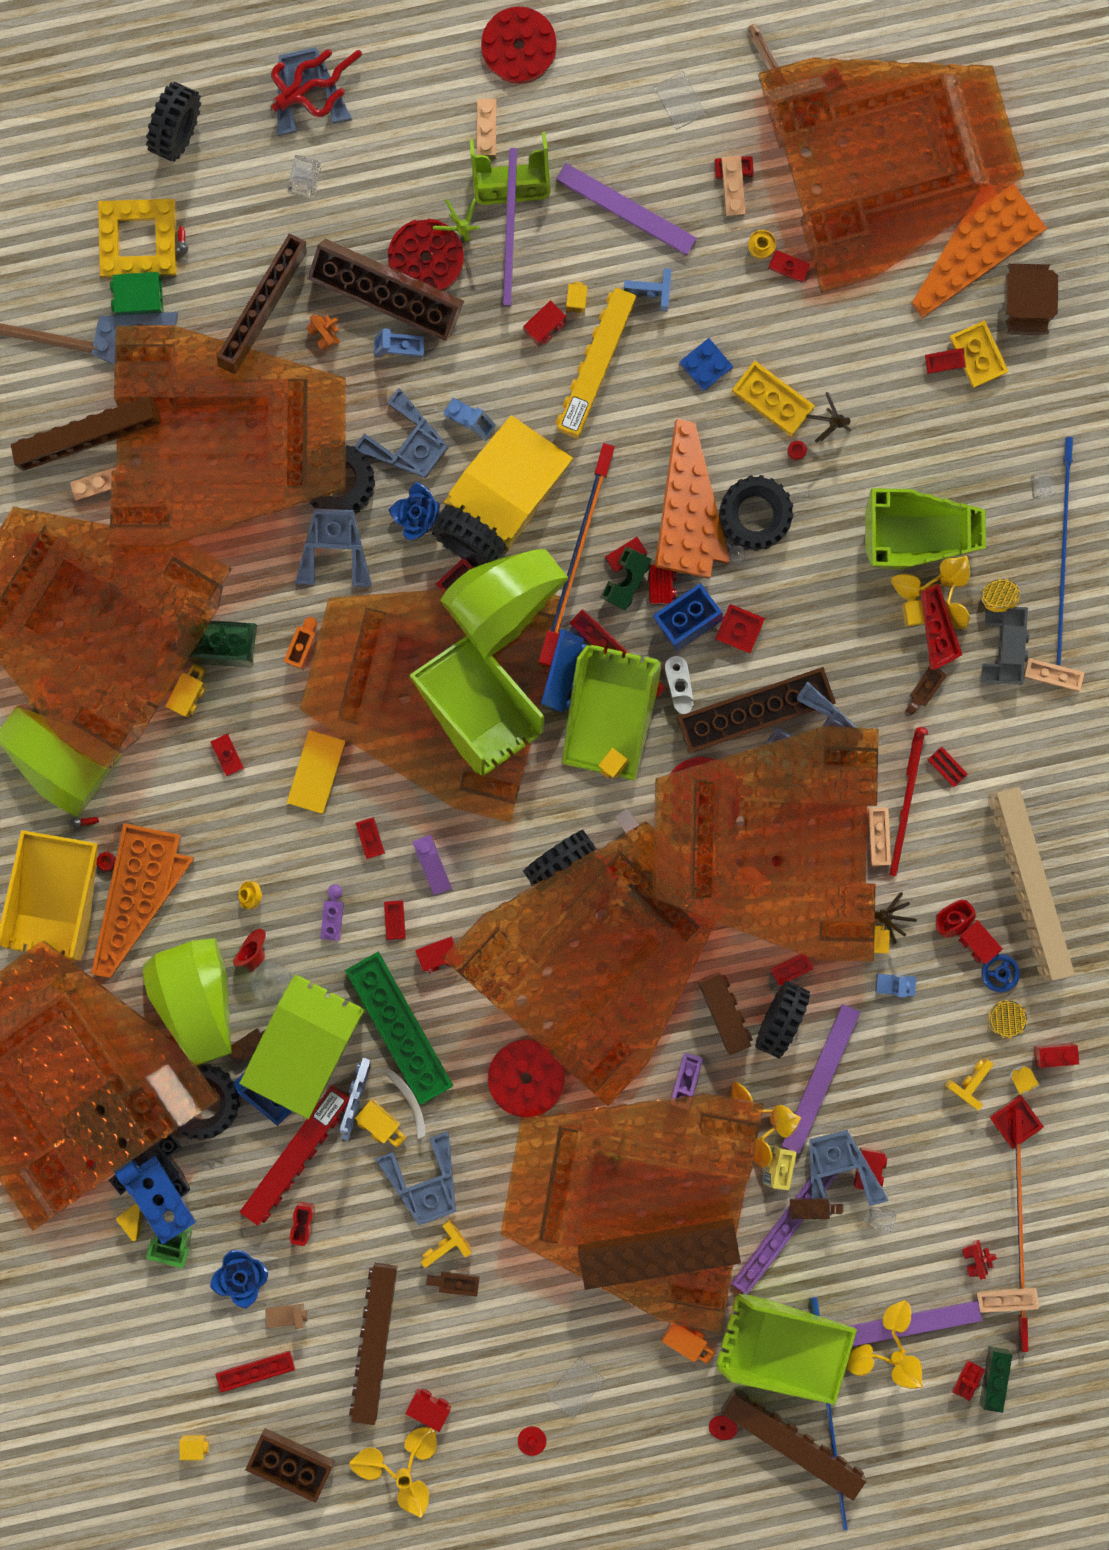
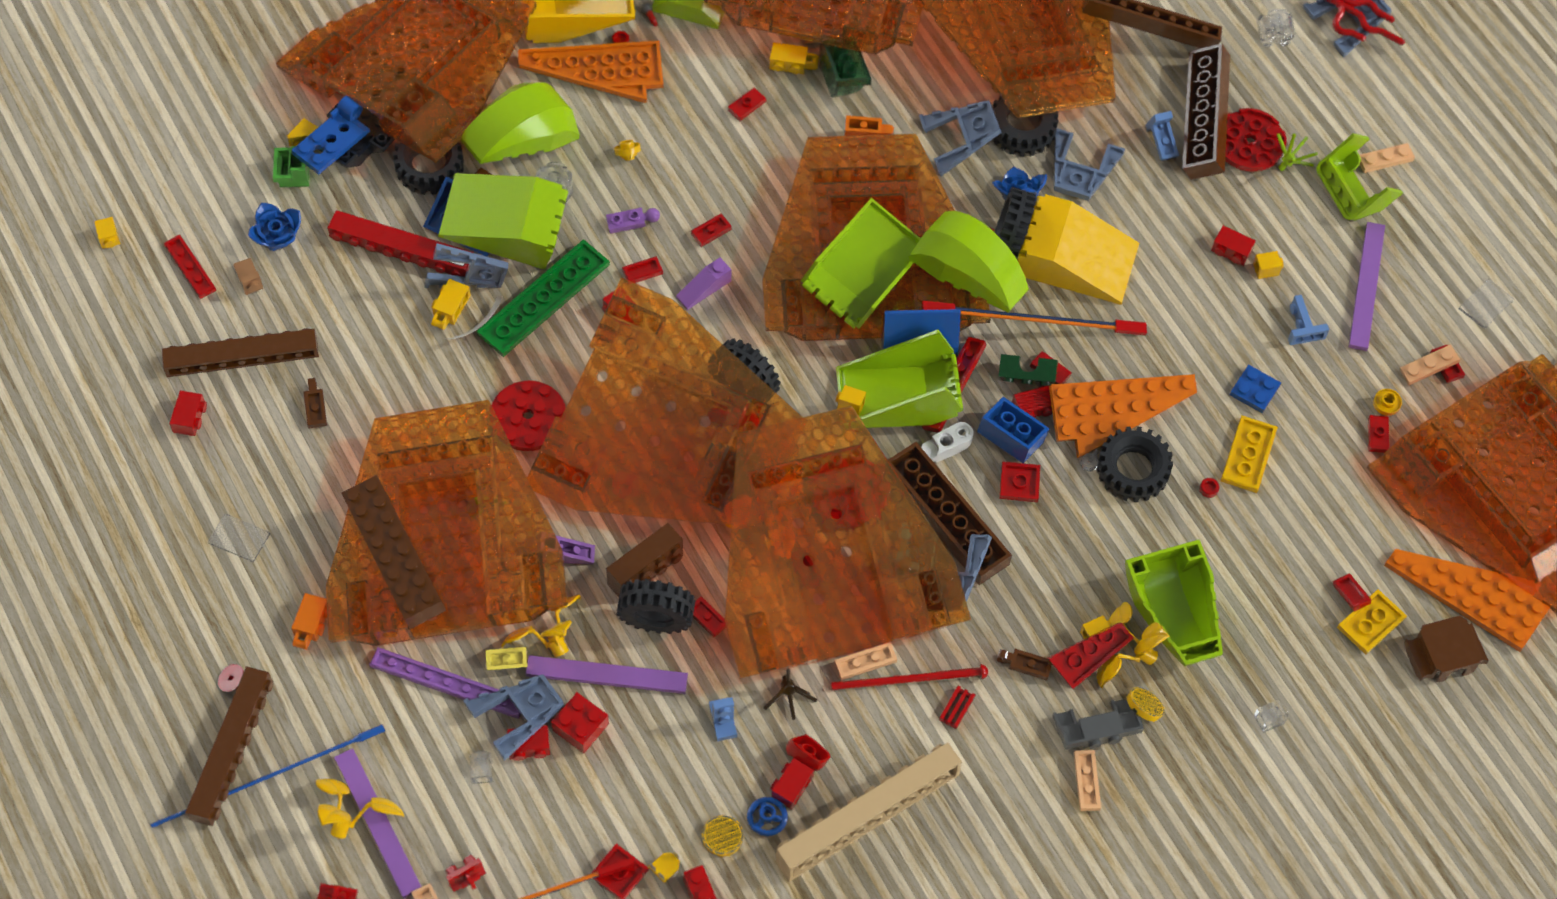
camera: 65 degrees right, 25 degrees down
(251, 952) = (576, 165): red piece -> none
(290, 1465) = (108, 311): reddish brown brick -> none
(302, 1228) = (338, 263): red brick -> none
(316, 771) = (756, 174): yellow tile -> none
(326, 327) = (1152, 79): orange hips -> none
(411, 1496) = (122, 380): yellow plant -> none
(429, 1198) = (394, 367): sand blue wing -> none
(446, 1244) = (355, 392): yellow bracket -> none
(470, 418) = (1122, 209): medium blue bracket -> none
(510, 226) = (1305, 191): medium lavender tile -> none
(518, 64) = (1474, 147): red plate -> none
(532, 1440) = (177, 514): red piece -> none
(596, 362) = (1216, 296): yellow brick -> none
(785, 1349) = (325, 709): lime windscreen -> none
(813, 1208) = (475, 695): reddish brown plate -> none
(835, 421) = (1250, 502): dark brown plant -> none
(865, 1117) = (580, 722): none -> red brick
(881, 942) = (762, 687): yellow brick -> none
(971, 1082) = (646, 816): yellow bracket -> none
(1067, 460) = (1303, 736): blue piece -> none

